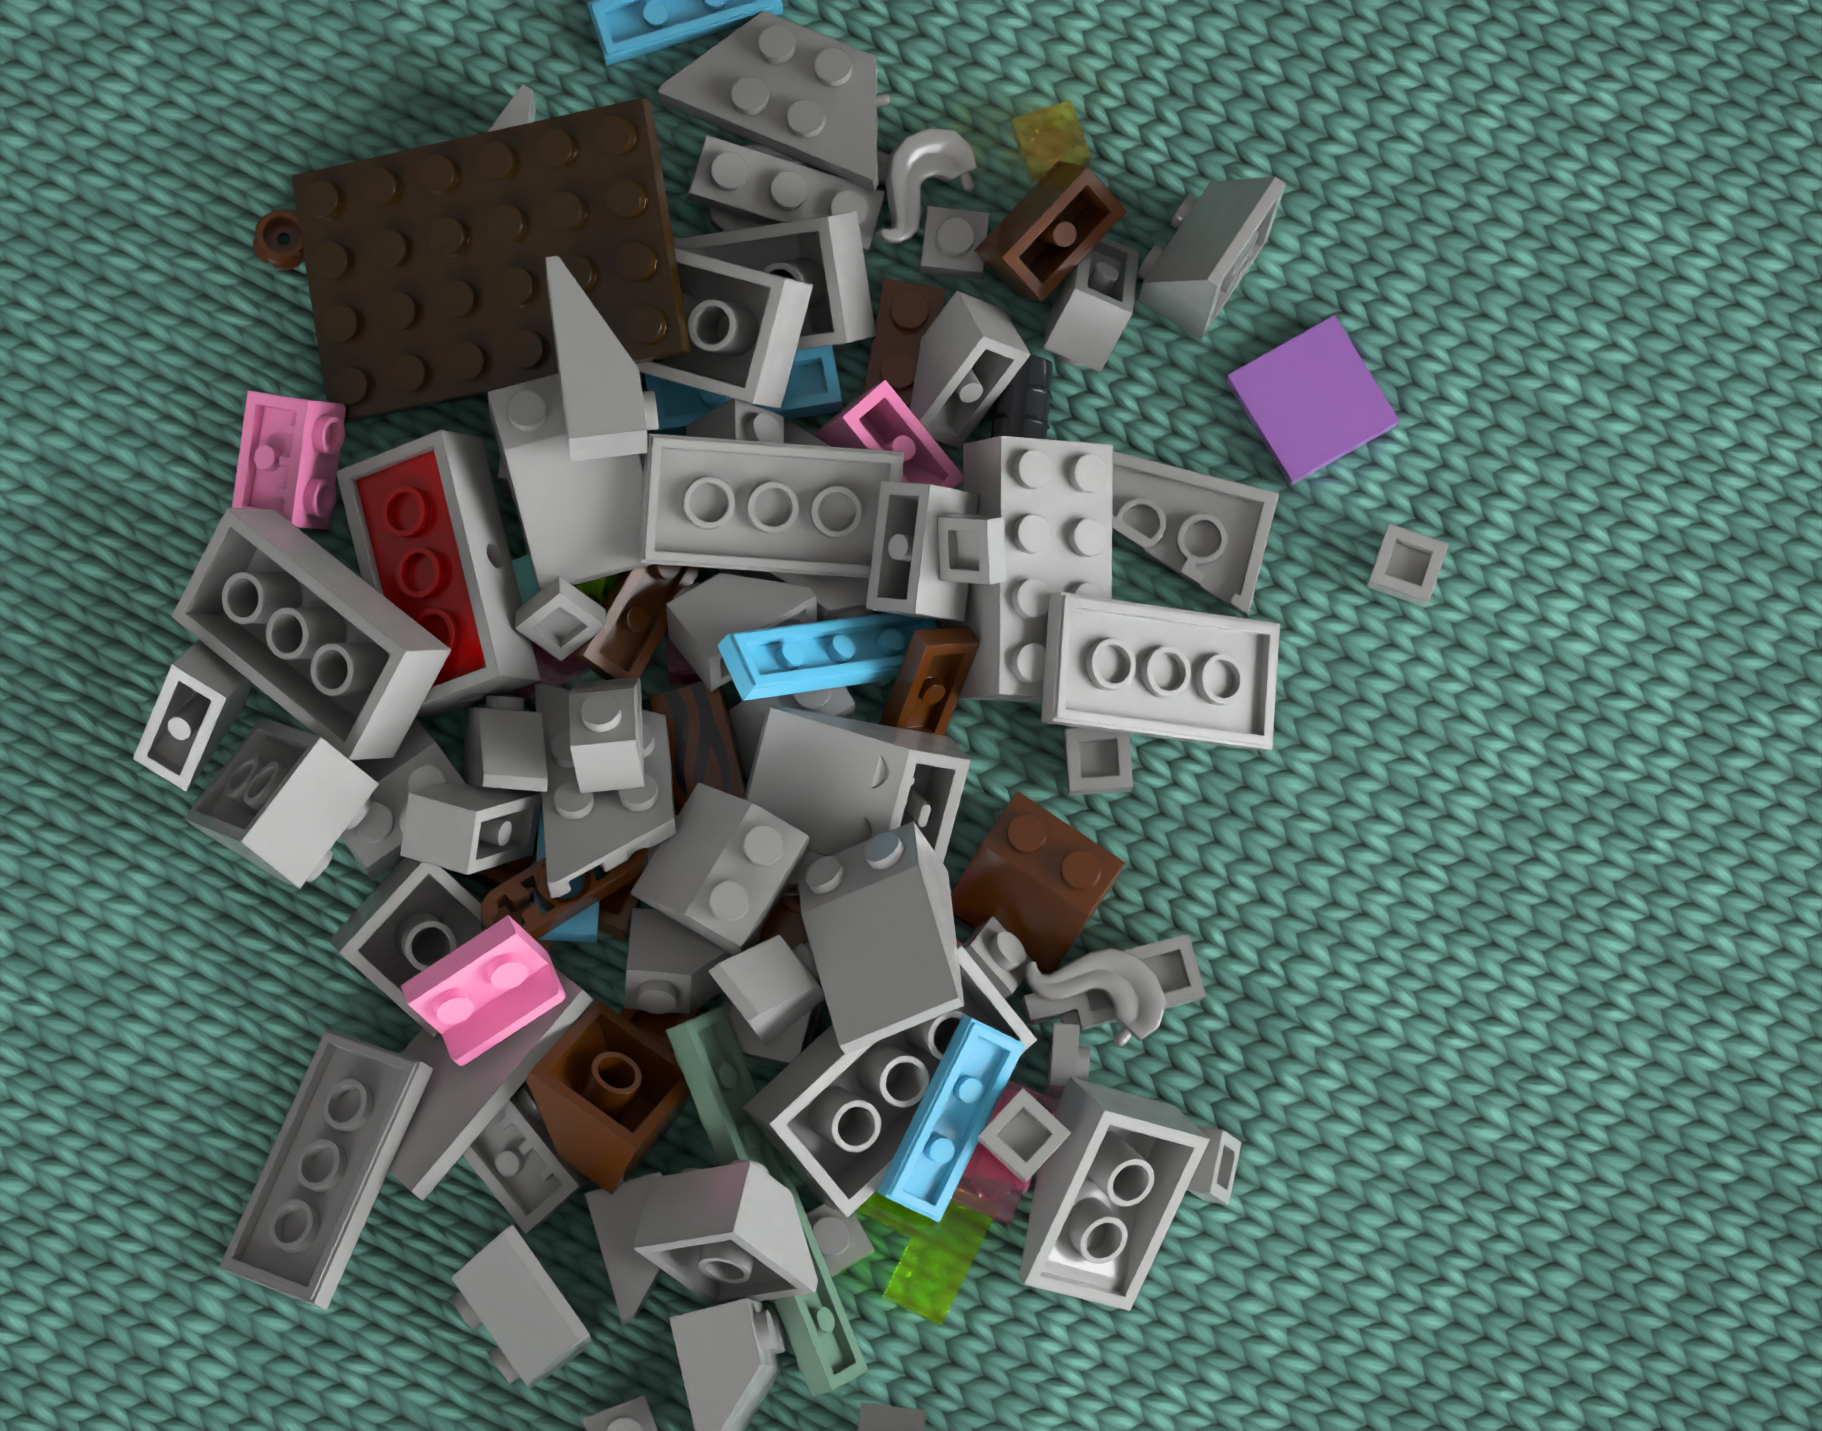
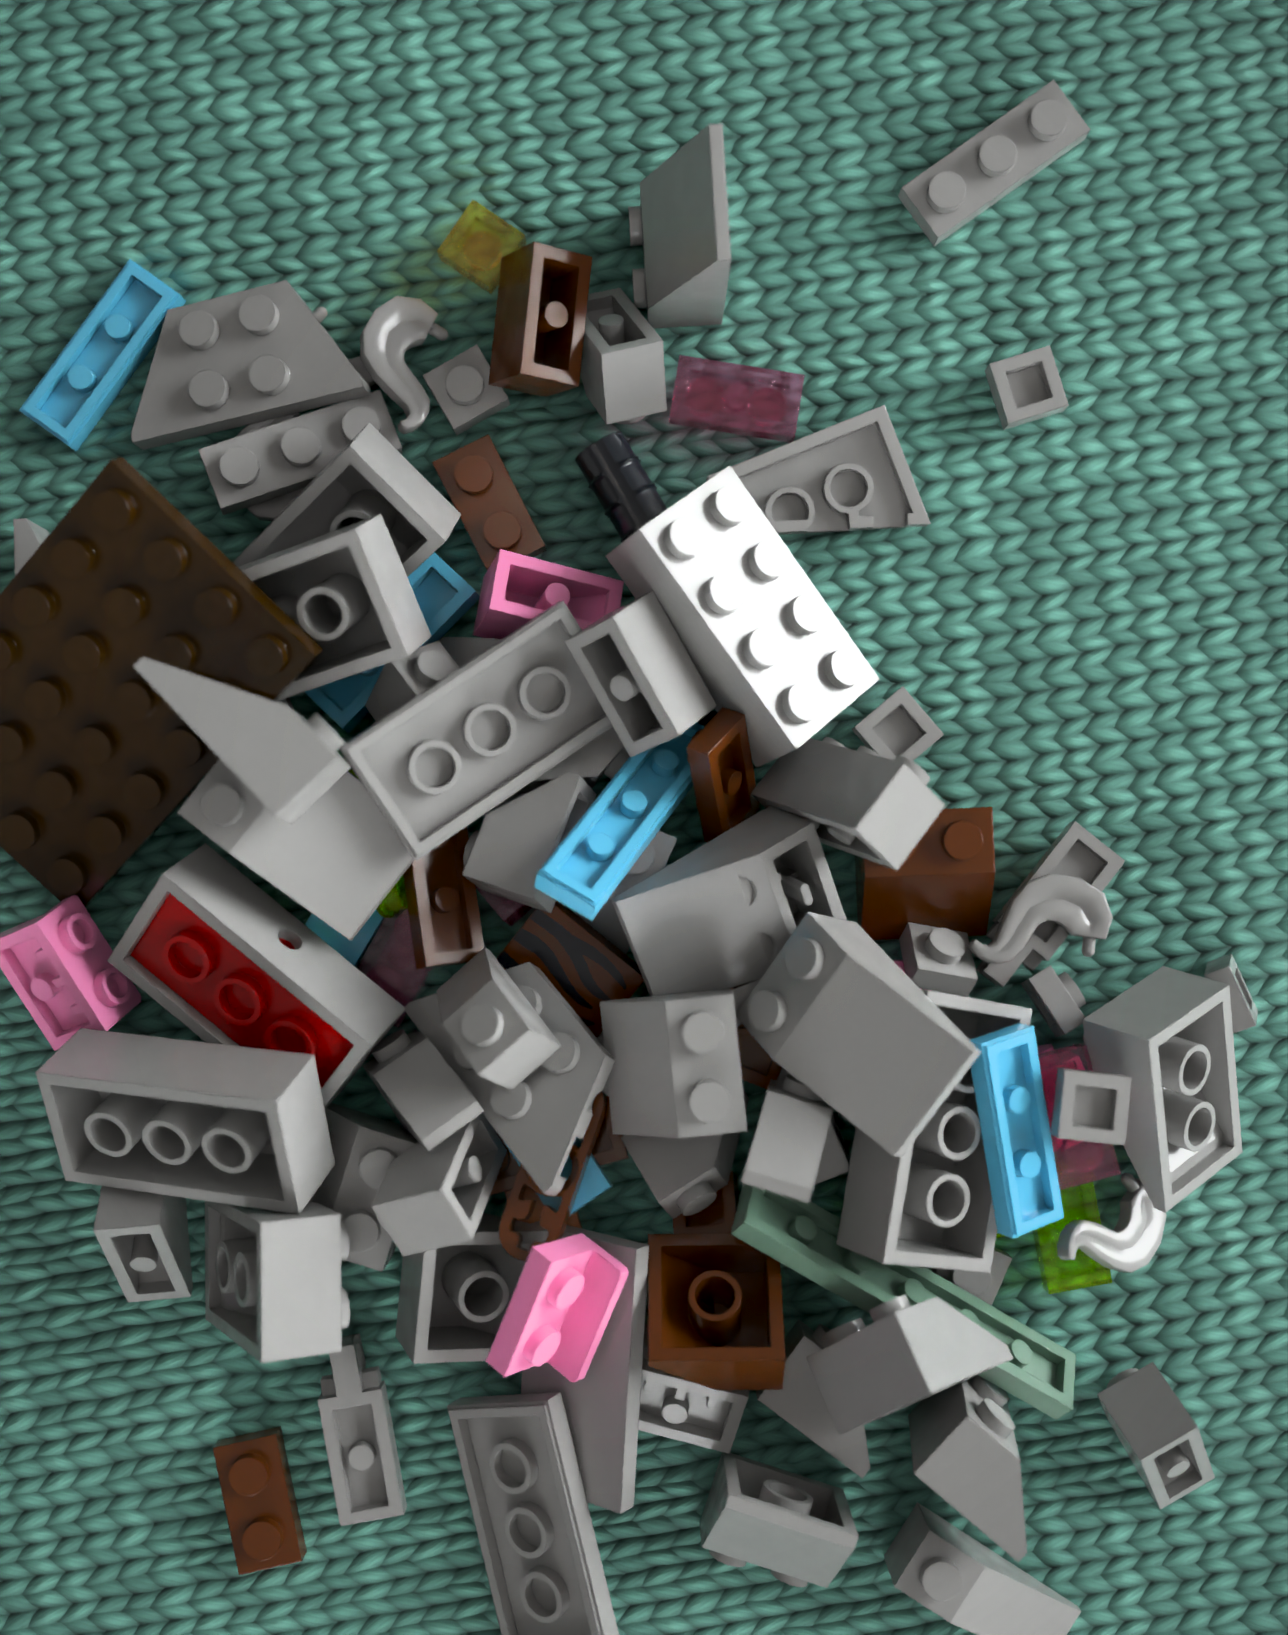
camera: 30 degrees left, 10 degrees up
(116, 993) = (259, 1500): none -> reddish brown plate
(238, 999) = (360, 1438): none -> light grey hinge
(560, 618) = (384, 950): light grey plate -> none
(964, 367) = (553, 487): light grey slope -> none
(971, 548) = (686, 645): light grey plate -> none
(977, 1306) = (1131, 1241): none -> piece
(1015, 765) = (854, 798): none -> light grey brick
(1160, 672) = (902, 629): tile -> none
(1165, 405) = (736, 399): none -> clear pink plate
(1312, 400) = (848, 307): medium lavender tile -> none
(1516, 372) = (993, 163): none -> light grey plate

